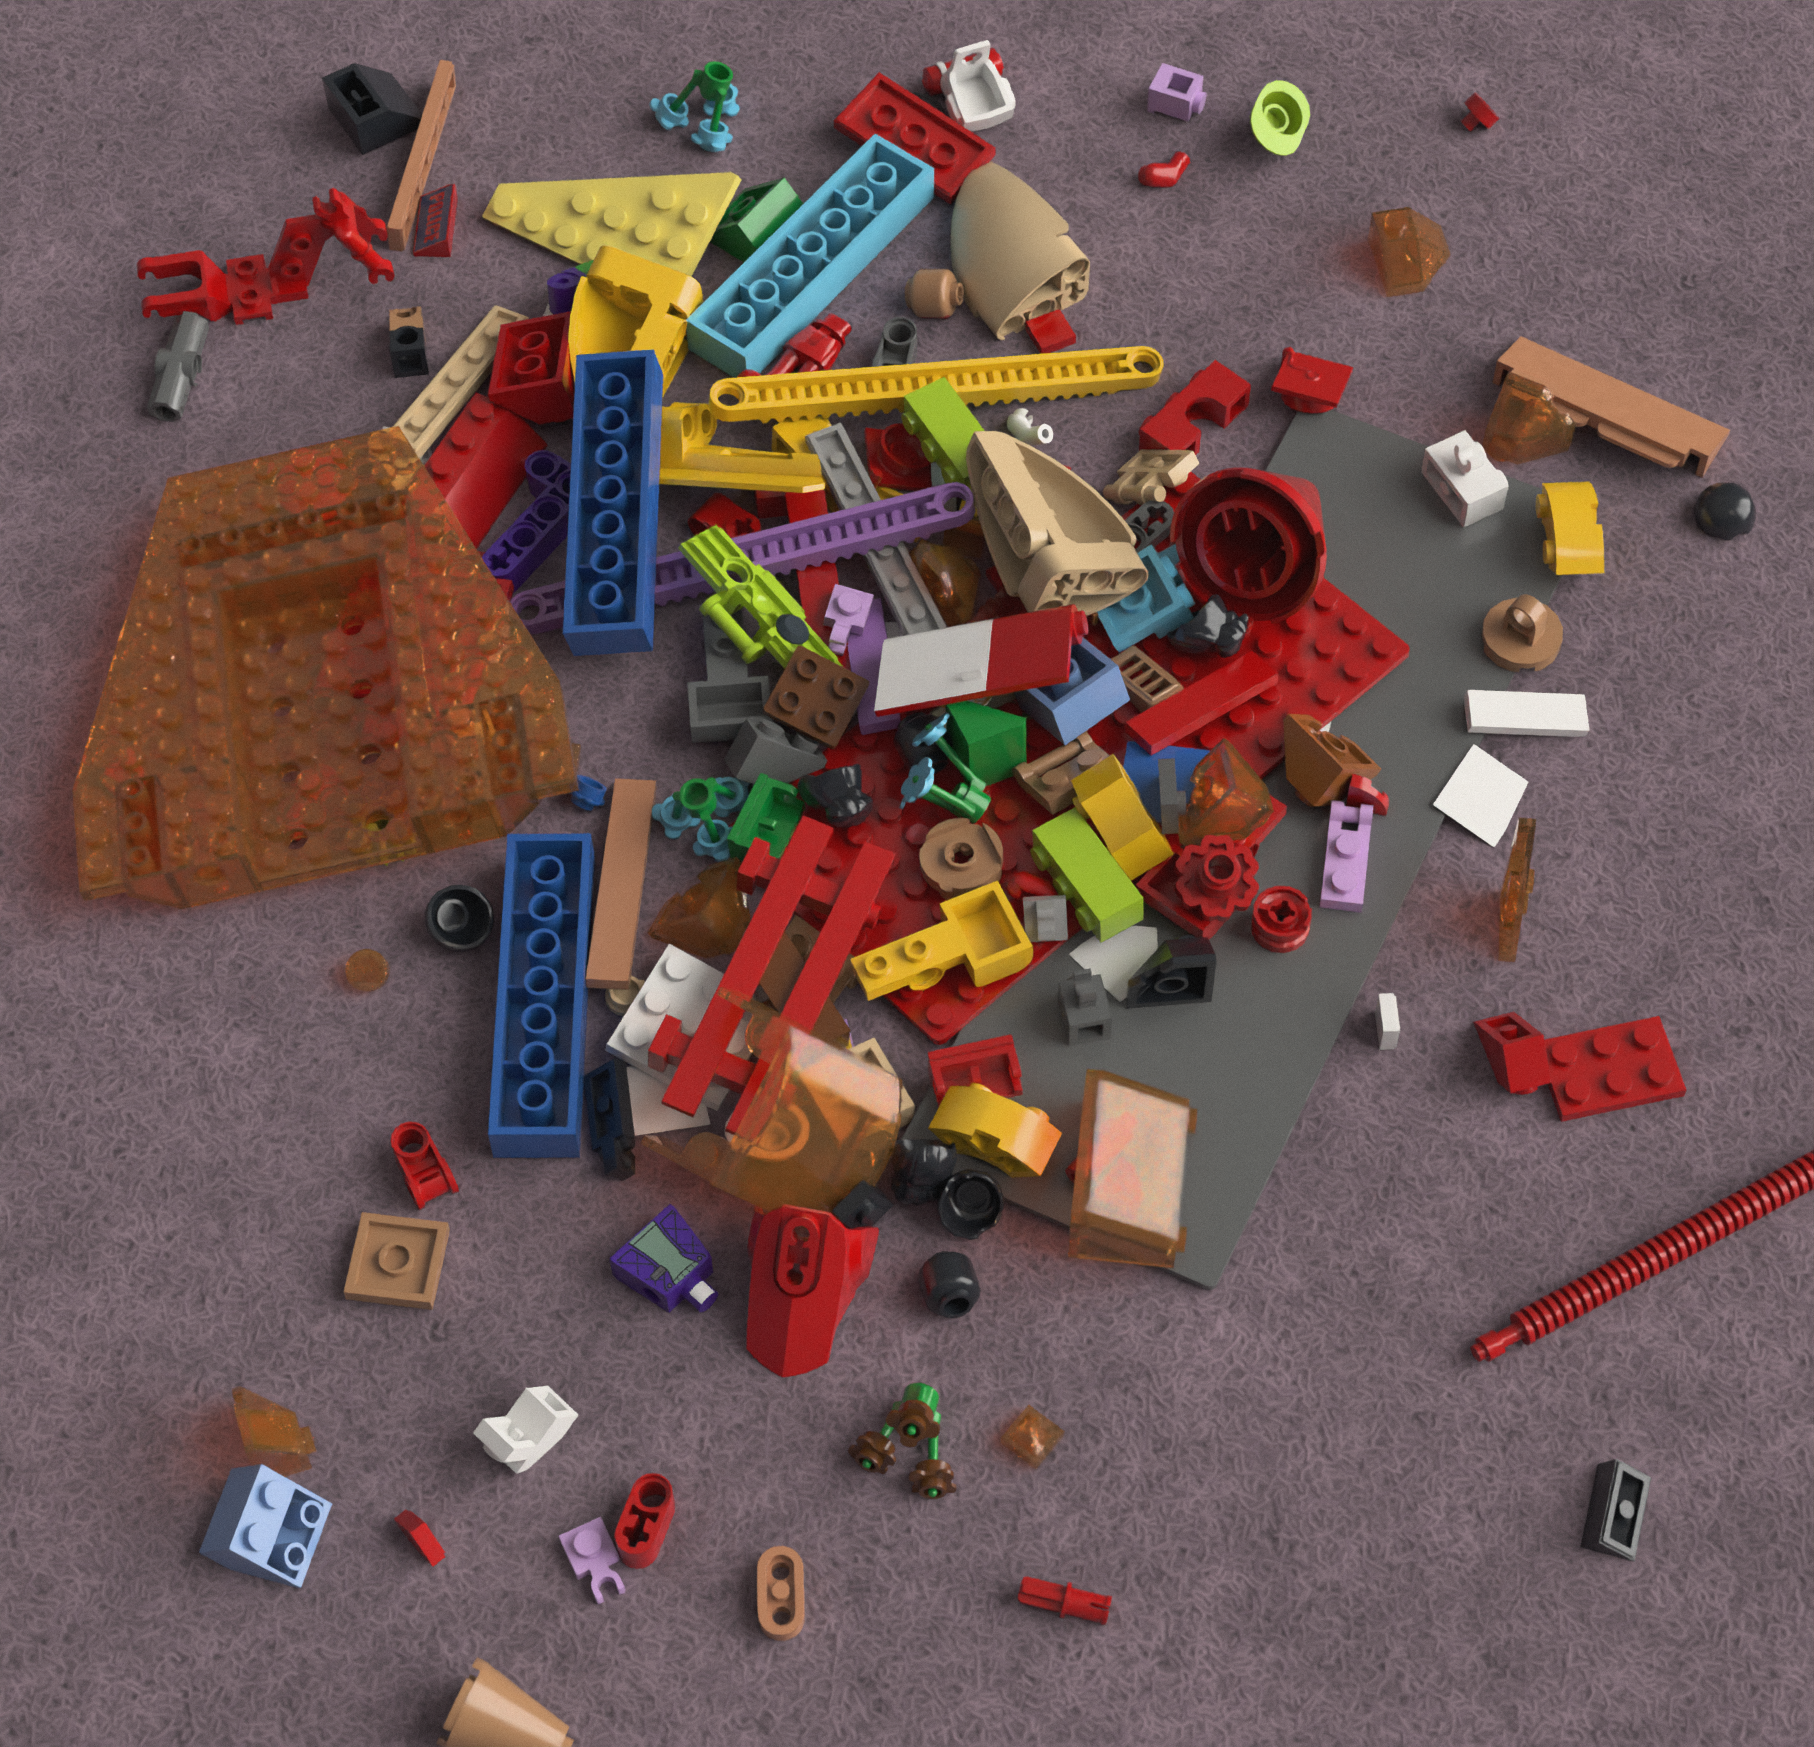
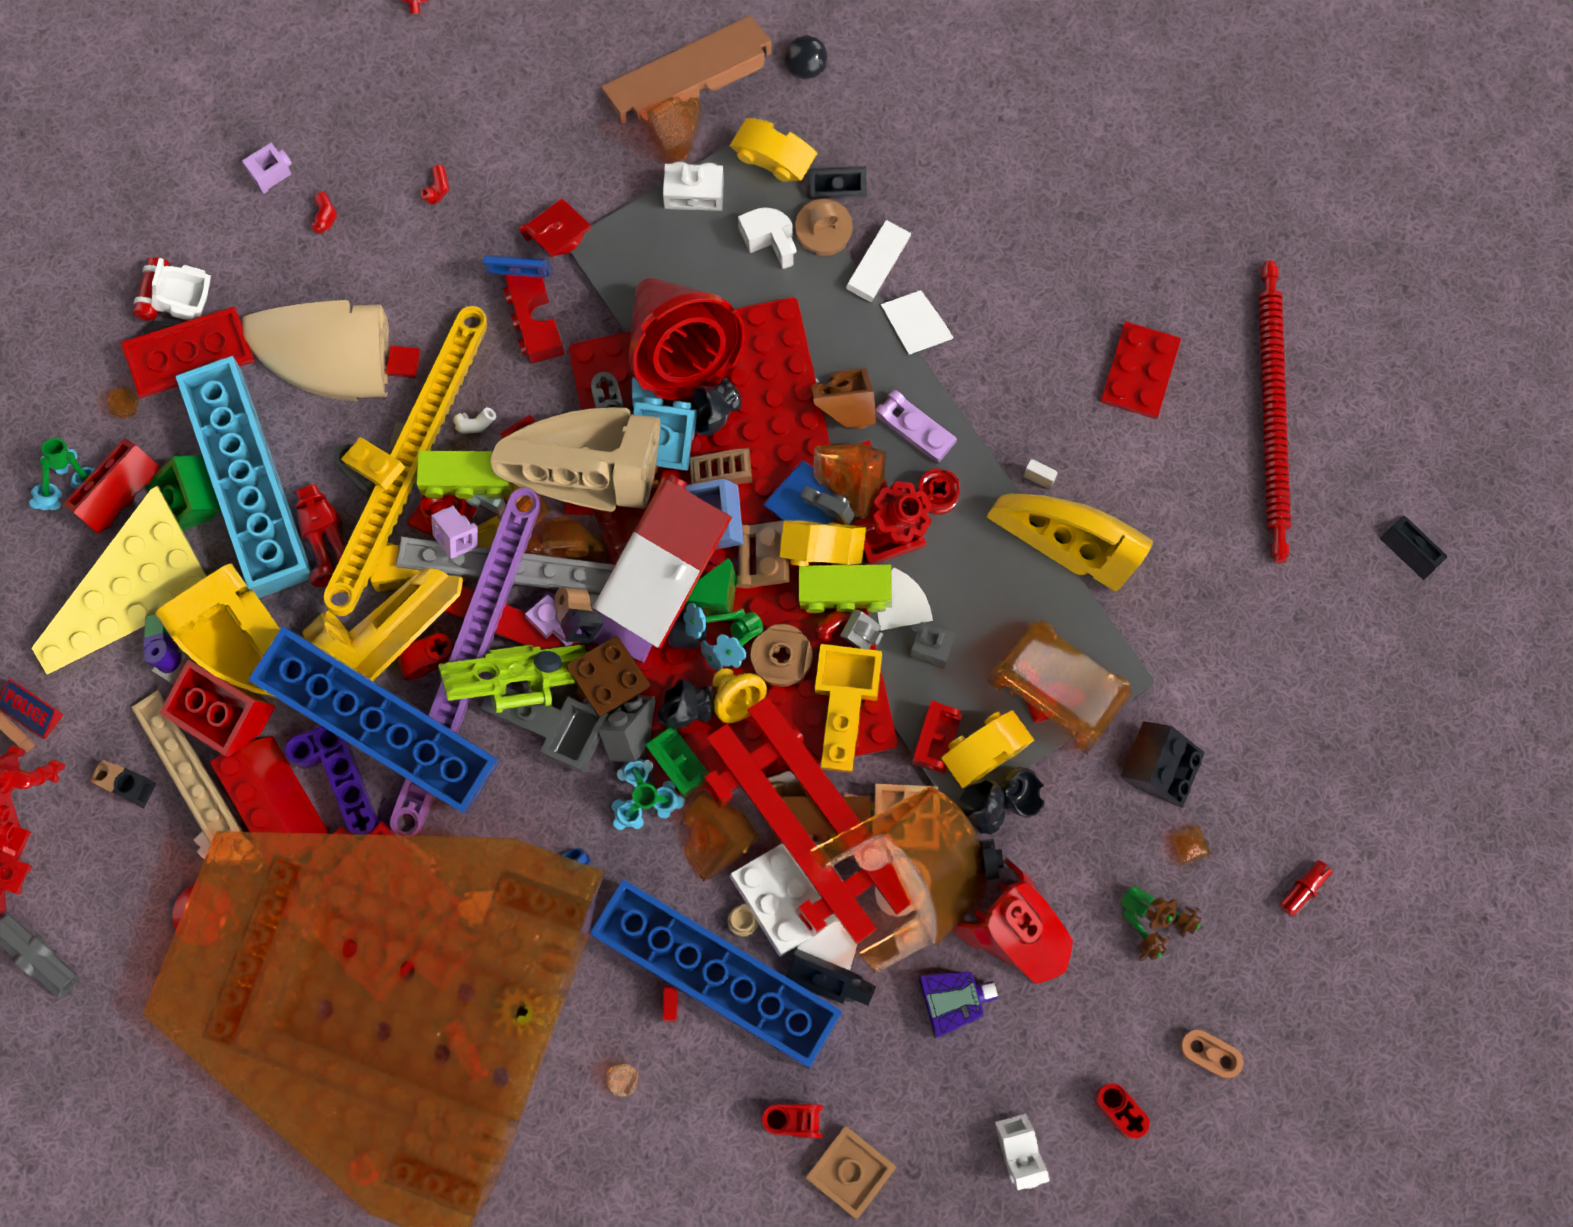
camera: 60 degrees left, 15 degrees up
(459, 918) = (624, 998): black piece -> none
(479, 970) = (670, 1008): none -> red tile
(591, 1553) = (1119, 1156): lavender plate -> none
(621, 884) = (660, 877): nougat tile -> none
(719, 150) = (111, 486): none -> red brick
(818, 118) = (122, 403): none -> clear orange tile
(868, 625) = (574, 613): none -> leg
(877, 462) = (454, 532): none -> lavender brick
(880, 825) = (736, 694): none -> yellow hair
(903, 350) = (373, 463): none -> yellow plate
(933, 293) = (325, 416): medium nougat head -> none
(949, 1284) = (1066, 836): black head -> none
(1114, 1349) = (1163, 763): none -> black slope
(1148, 472) = (565, 361): tan plate -> none
(1174, 974) = (940, 573): black slope -> none
(1201, 702) = (764, 444): red tile -> none
(1235, 364) = (517, 266): none -> blue slope
(1276, 256) = (435, 192): none -> red arm
(1280, 117) = (337, 119): piece -> none
(1346, 1137) = (1108, 542): none -> yellow panel
(1362, 793) = (882, 389): red tile -> none
(1406, 249) = (491, 110): clear orange slope -> none
(1470, 576) = (766, 228): none -> white brick
(1514, 1052) = (1102, 415): red slope -> none
(1515, 889) = (1007, 347): clear orange wing -> none
(1589, 618) = (837, 182): none -> black slope

